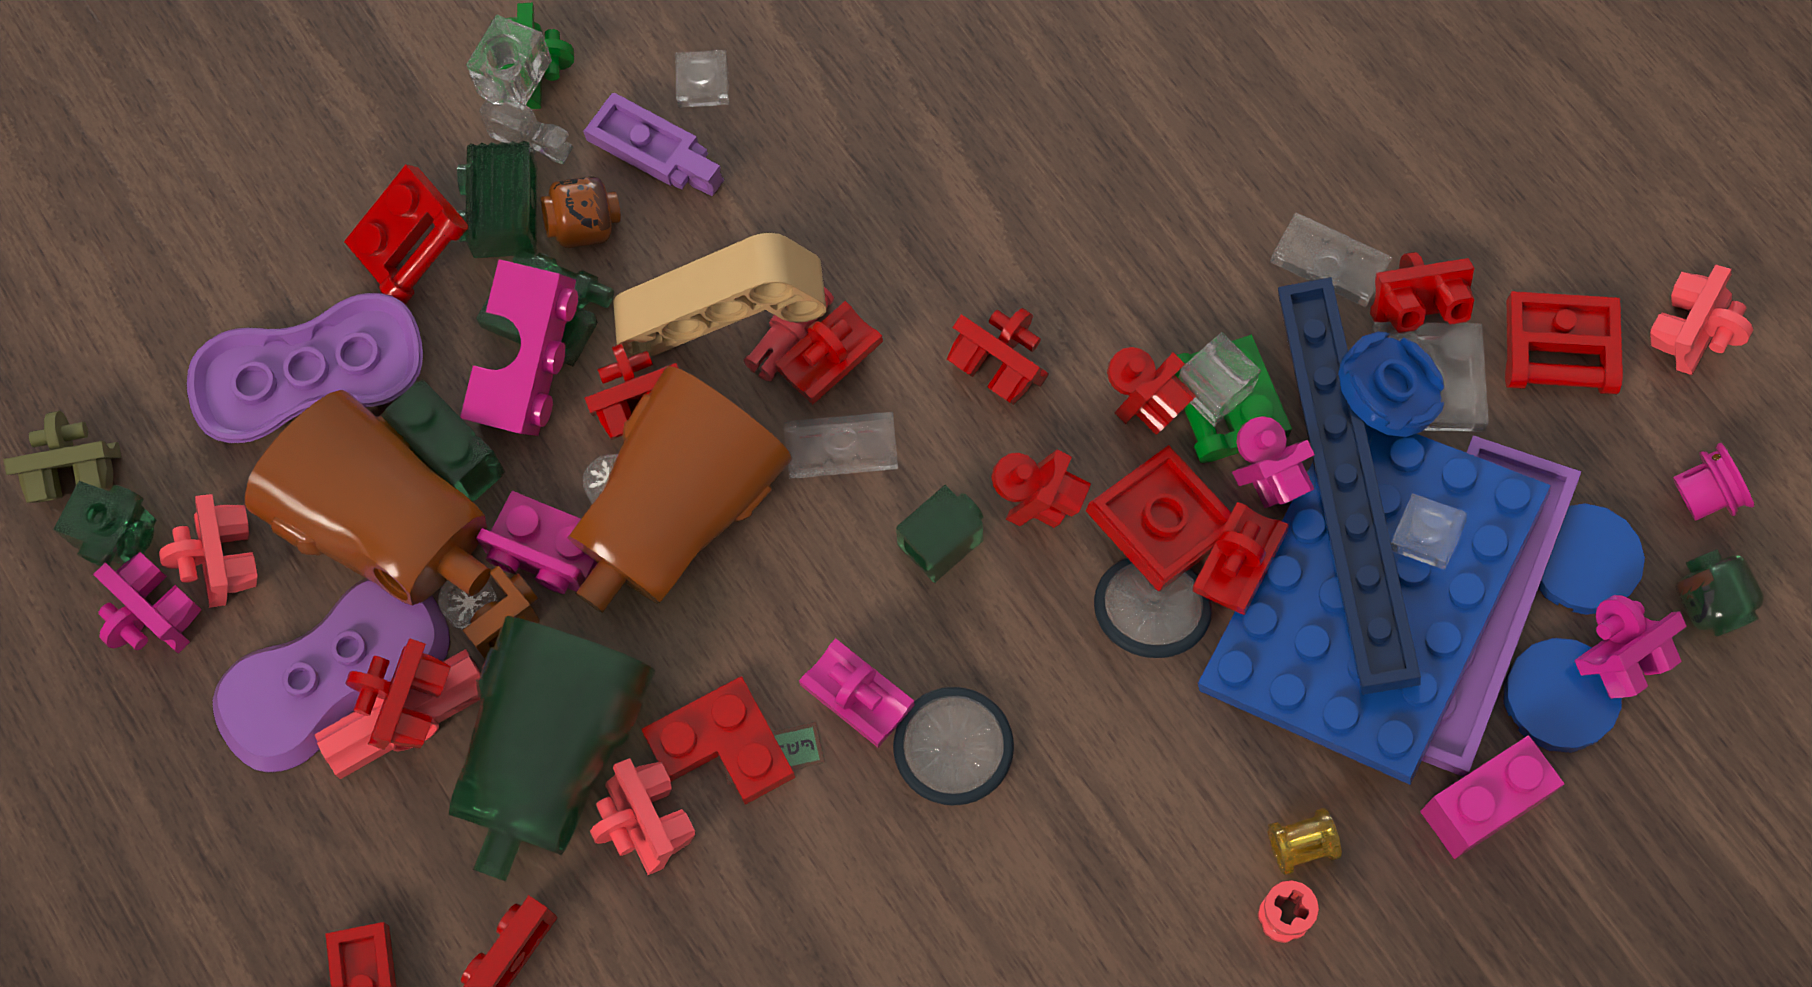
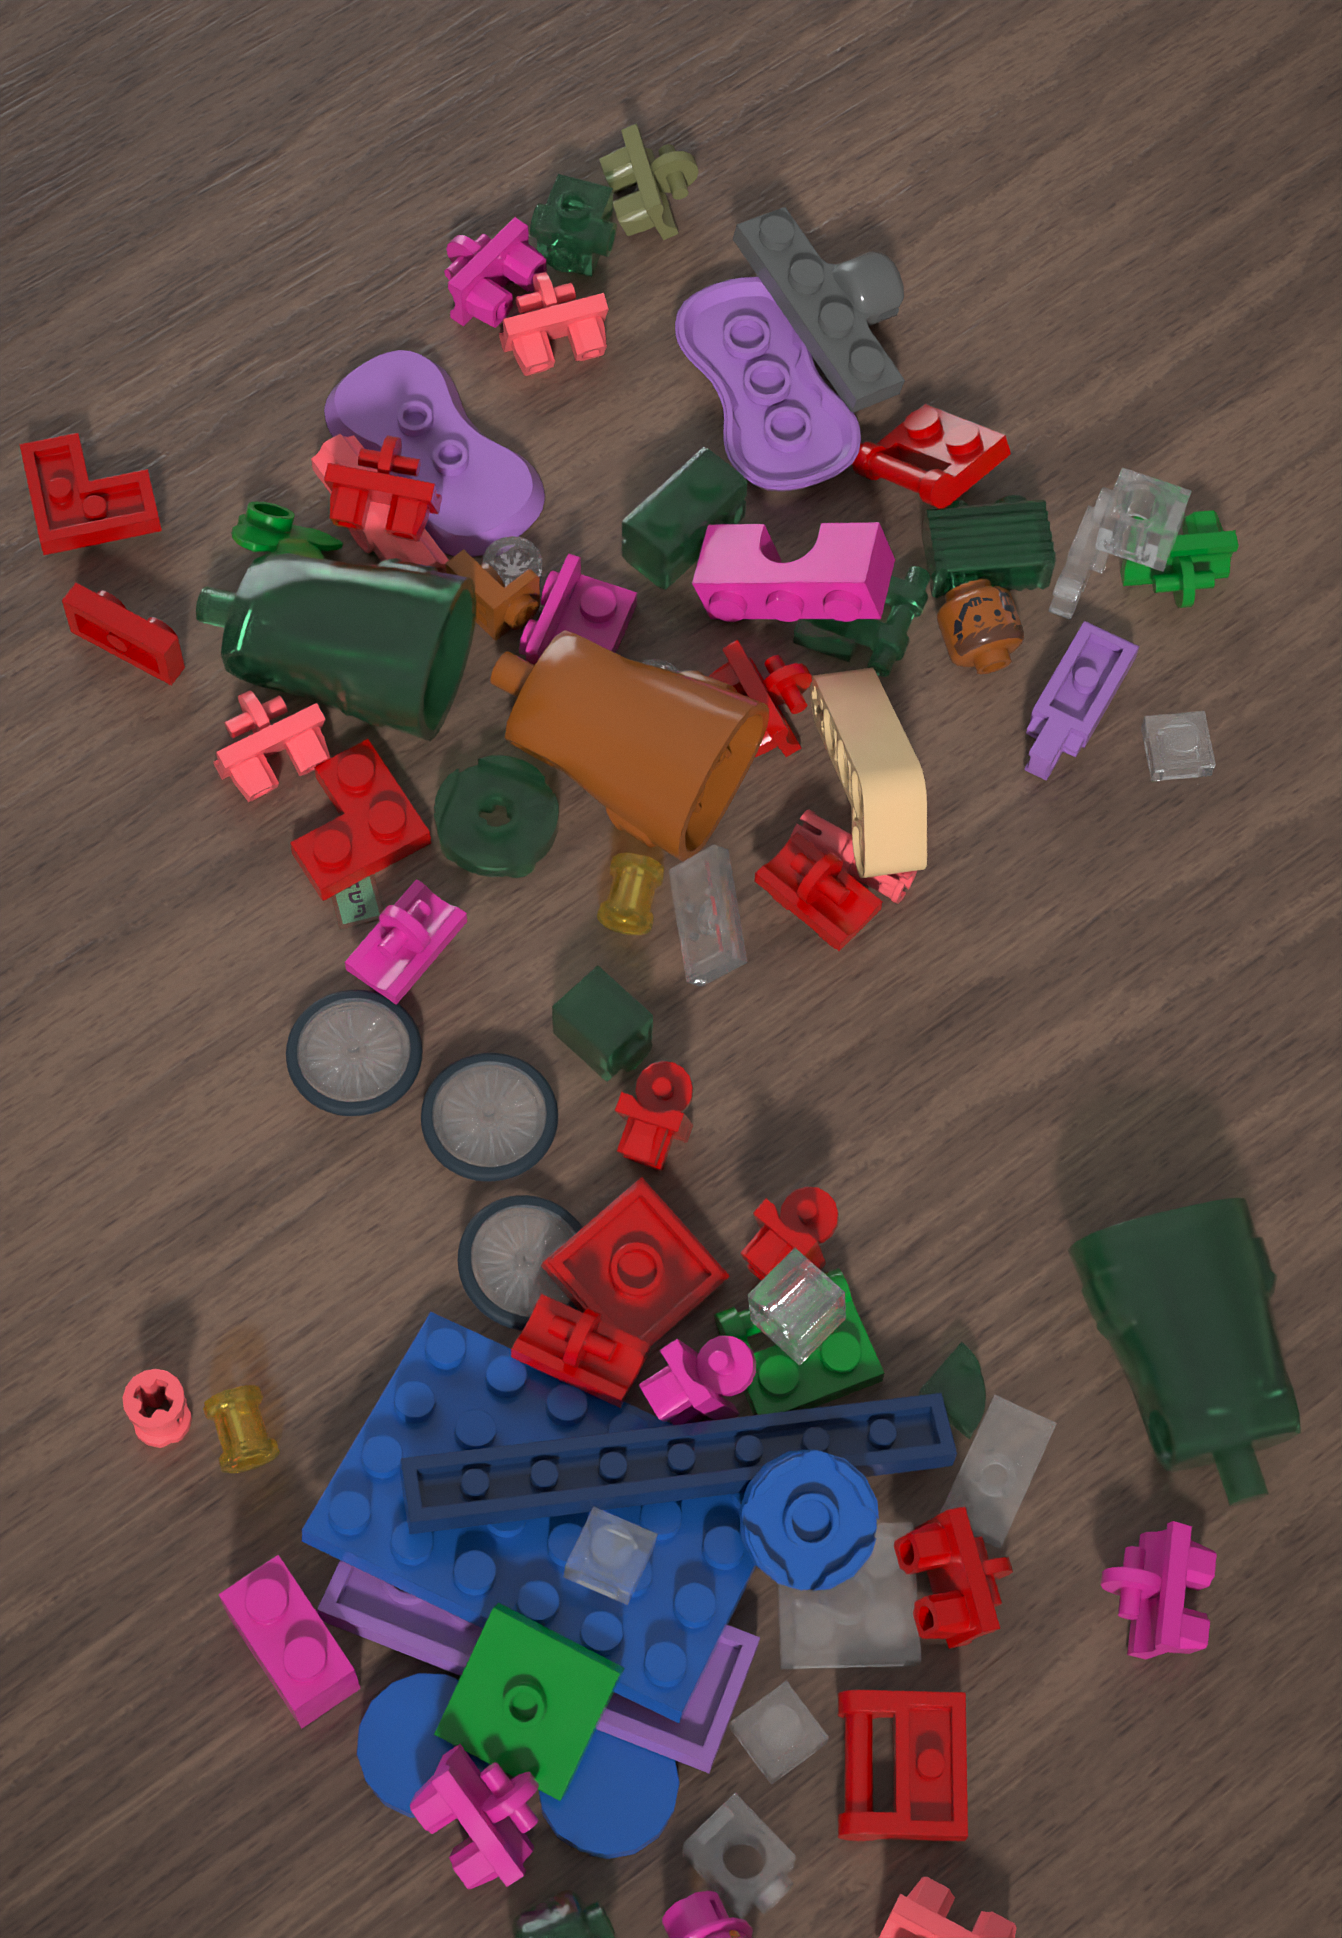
camera: 80 degrees right, 5 degrees down
(231, 307) = (829, 304): none -> dark grey plate
(361, 496) = (609, 439): dark orange torso -> none
(420, 805) = (271, 529): none -> green plate
(742, 647) = (504, 849): none -> clear green plate
(815, 506) = (631, 894): none -> clear yellow bush
(975, 344) = (840, 1085): red hips -> none
(1018, 632) = (489, 1117): none -> clear wheel
(1231, 103) = (1195, 1336): none -> clear green torso
(1259, 285) = (961, 1388): none -> clear green tile
(1426, 152) = (1154, 1591): none -> dark pink hips
(1539, 429) = (778, 1732): none -> clear plate
(1543, 601) = (529, 1700): none -> green plate
(1628, 474) = (732, 1826): none -> clear brick

